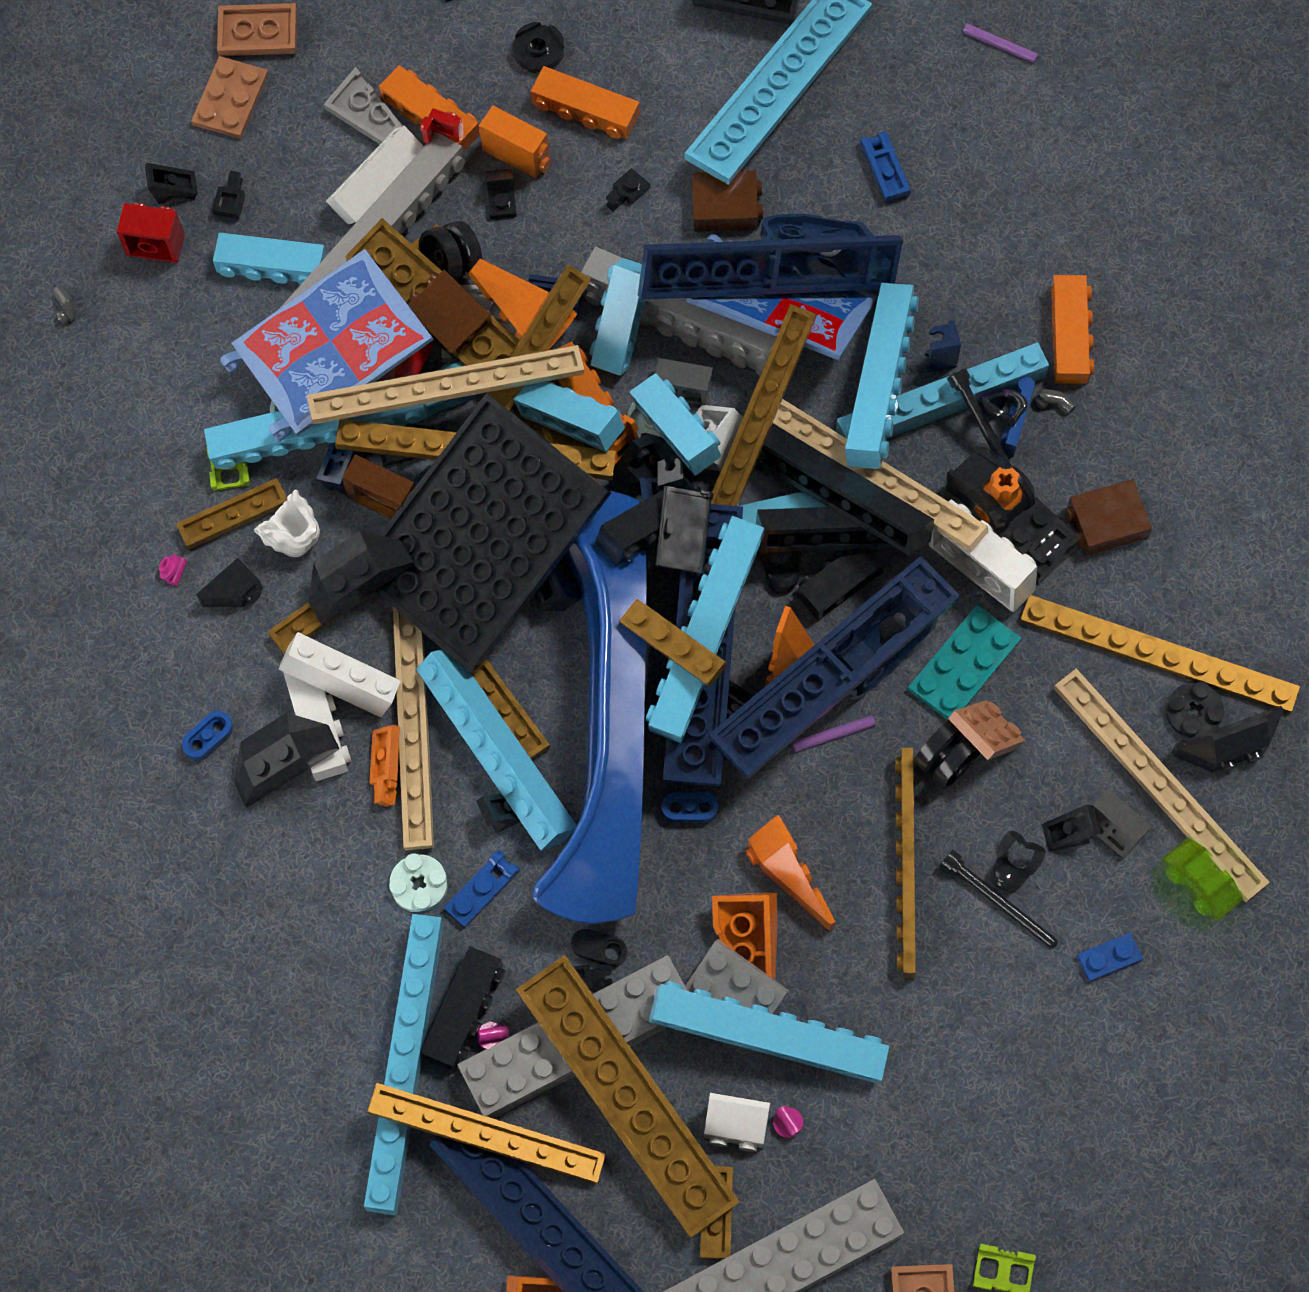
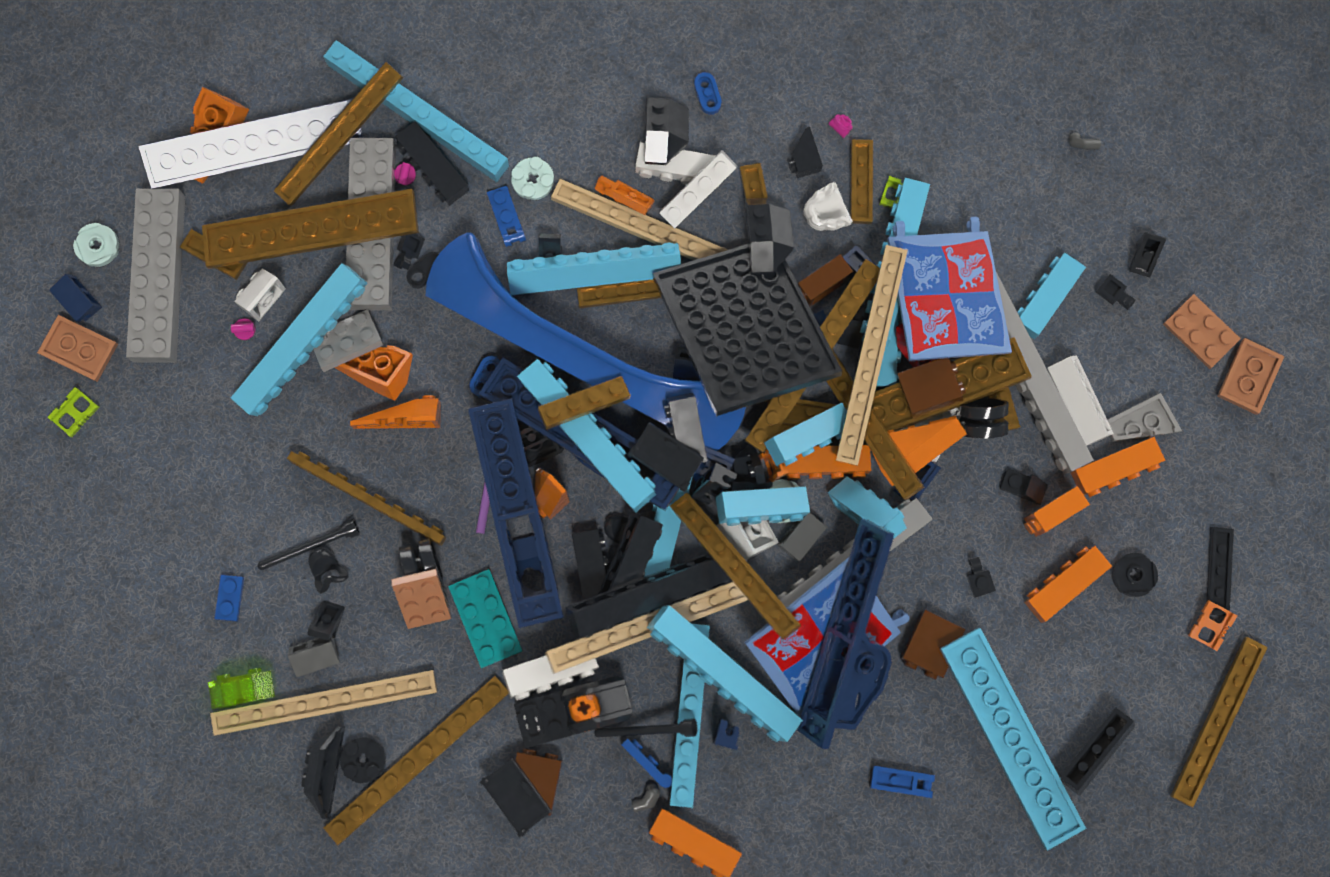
camera: 110 degrees right, 10 degrees up
(151, 232) = (1110, 220): red brick -> none
(443, 123) = (1094, 467): red bracket -> none
(994, 403) = (664, 749): black piece -> none
(1141, 516) = (514, 797): none -> black door

